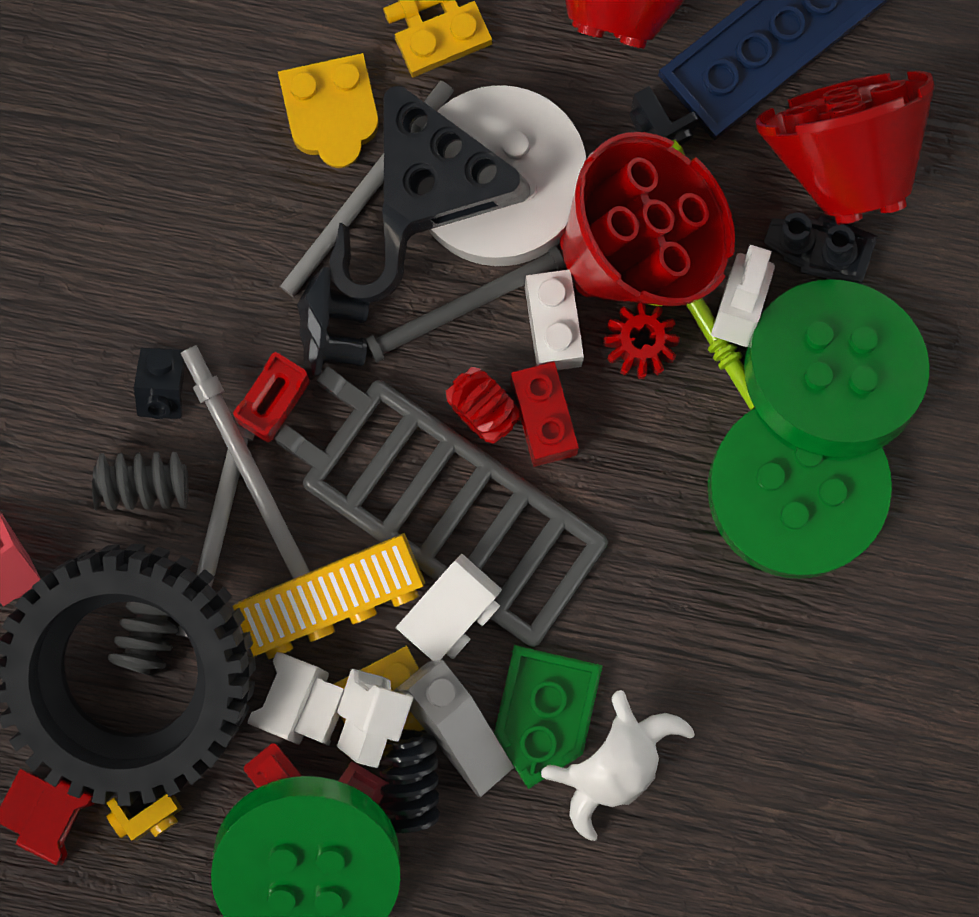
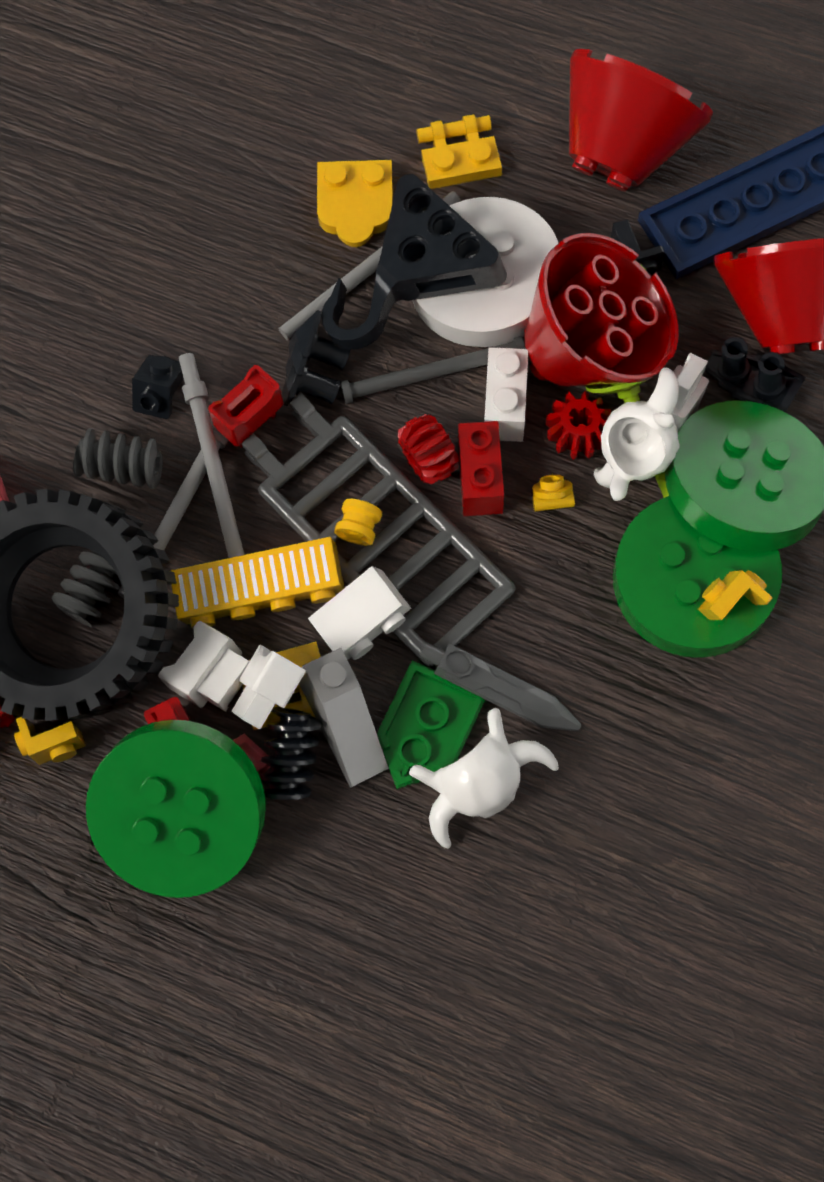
camera: 20 degrees right, 10 degrees down
(425, 506) = (358, 522): none -> yellow wheel
(614, 656) = (499, 687): none -> dark grey piece
(626, 424) = (552, 493): none -> yellow plate
(714, 357) = (640, 438): none -> white piece
(837, 513) = (725, 593): none -> yellow bracket

